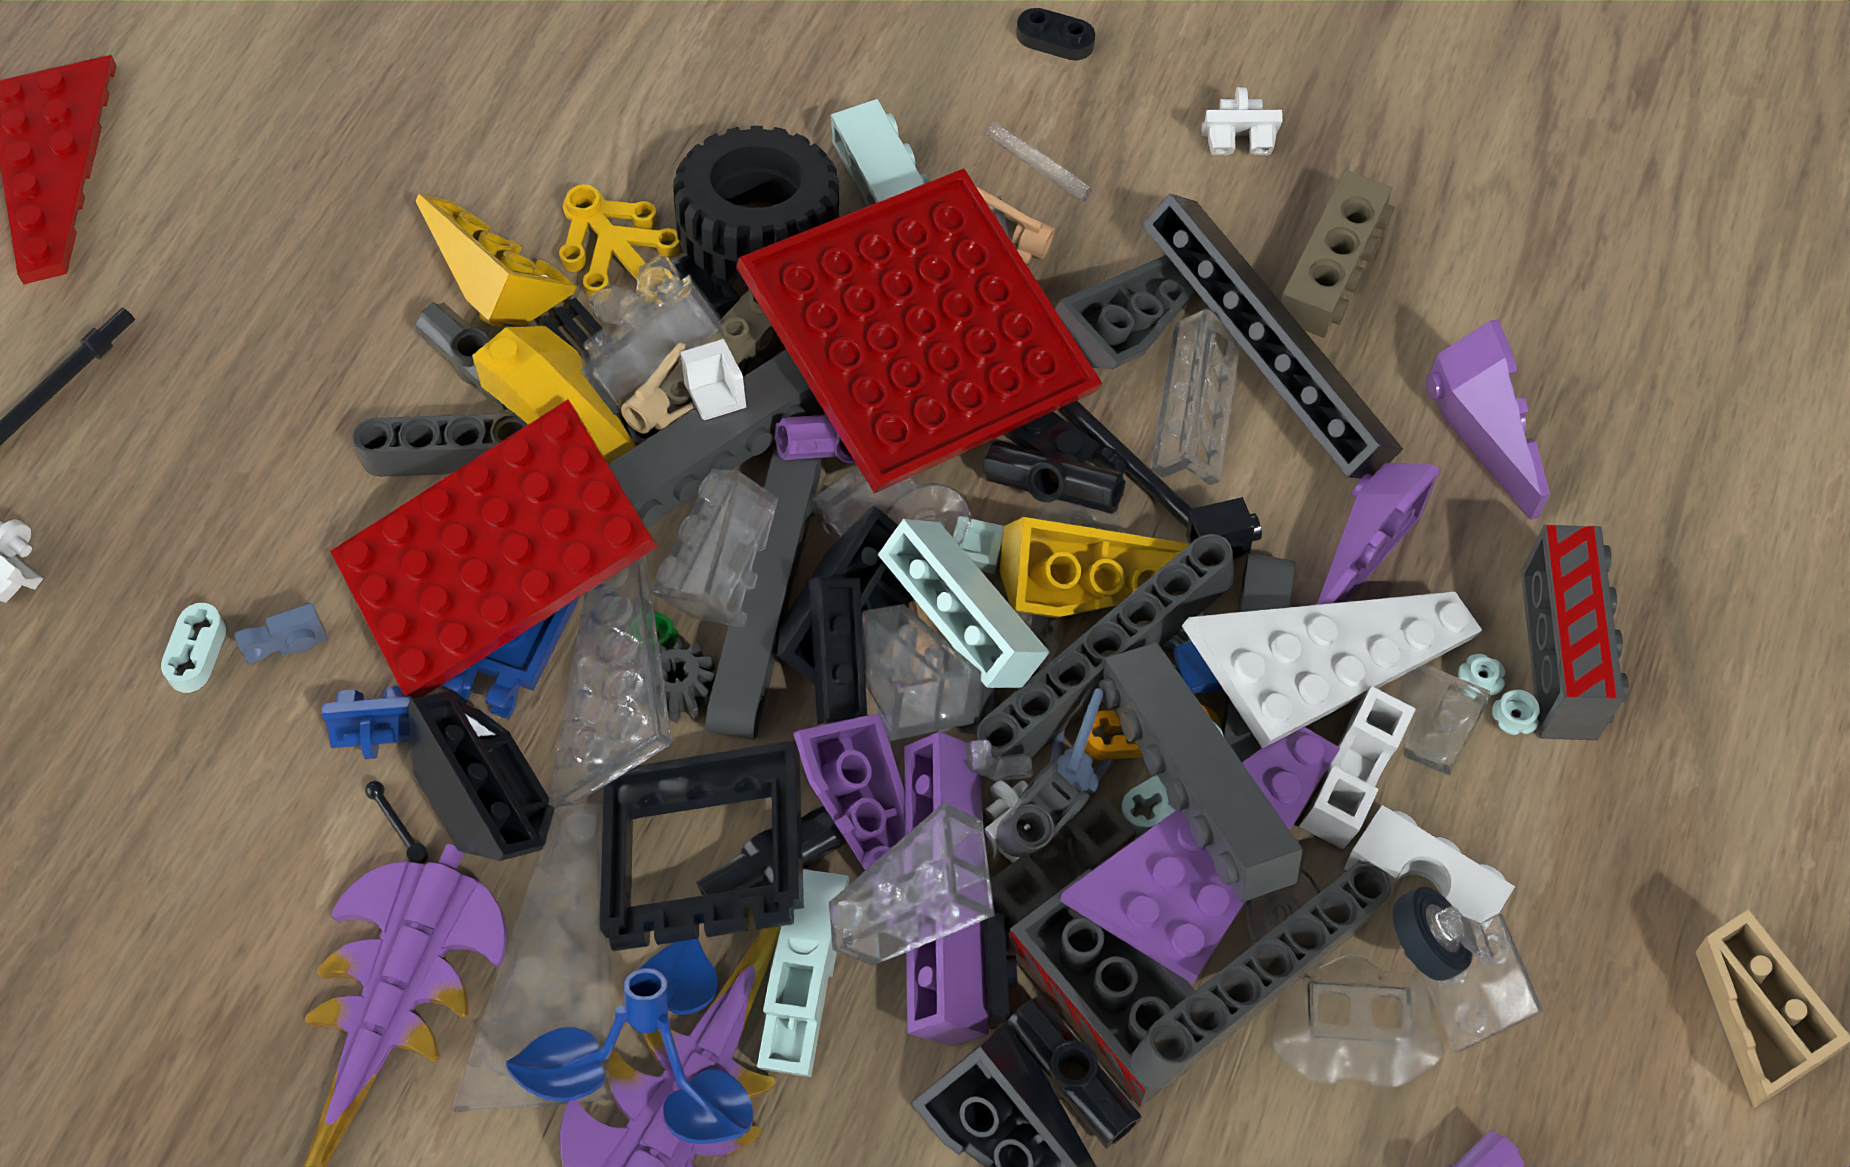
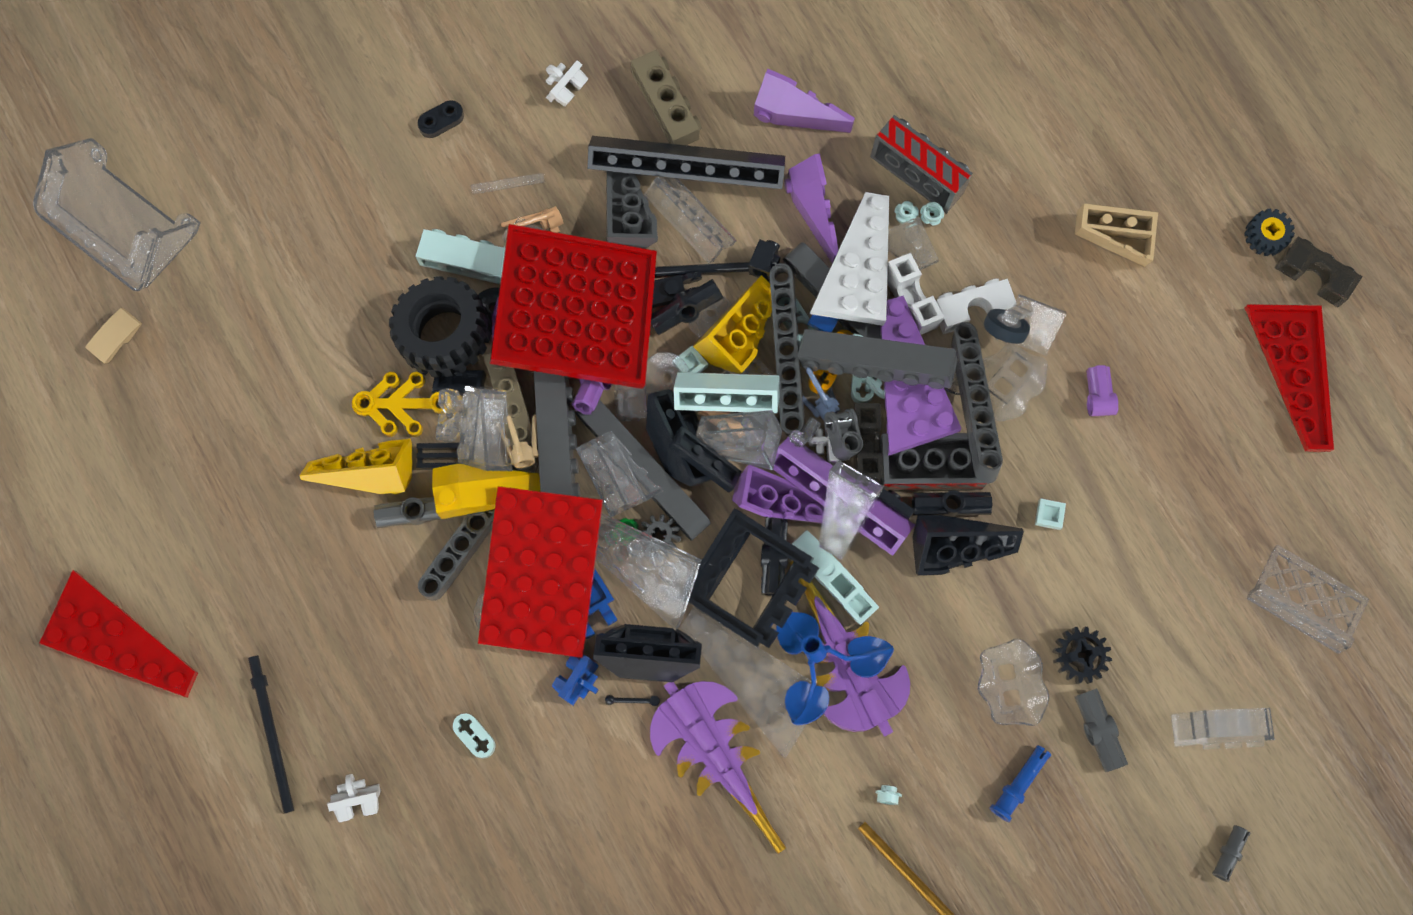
camera: 55 degrees left, 15 degrees up
(286, 632) = (504, 685): sand blue plate -> none
(713, 379) = (533, 415): white panel -> none

